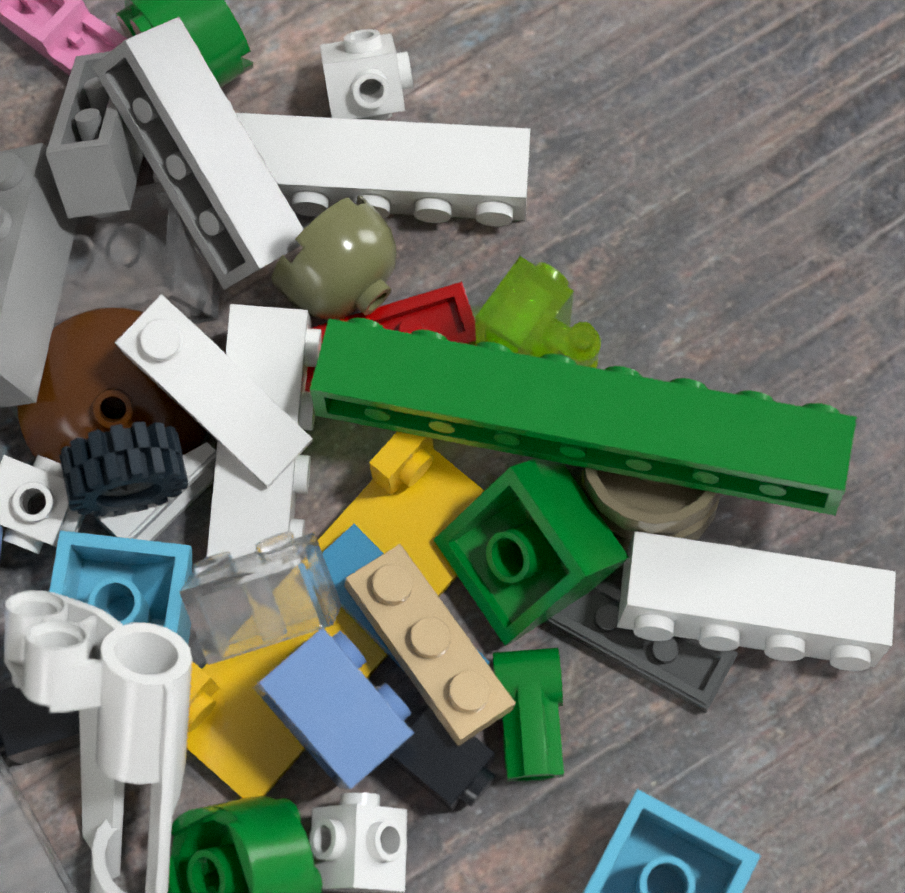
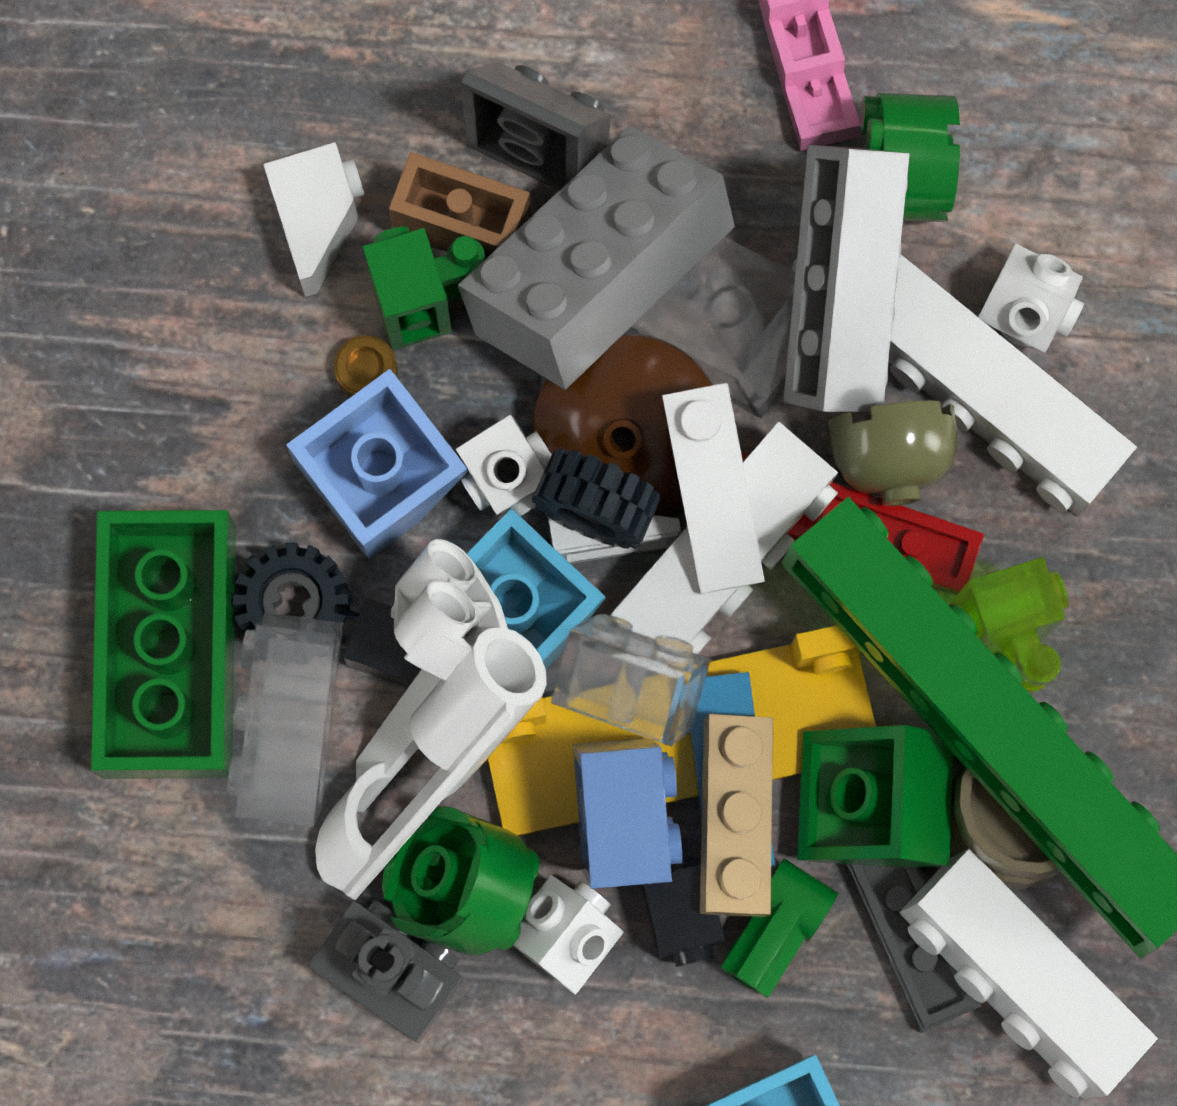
camera: 30 degrees right, 5 degrees up
(92, 147) = (762, 205): light grey brick -> none

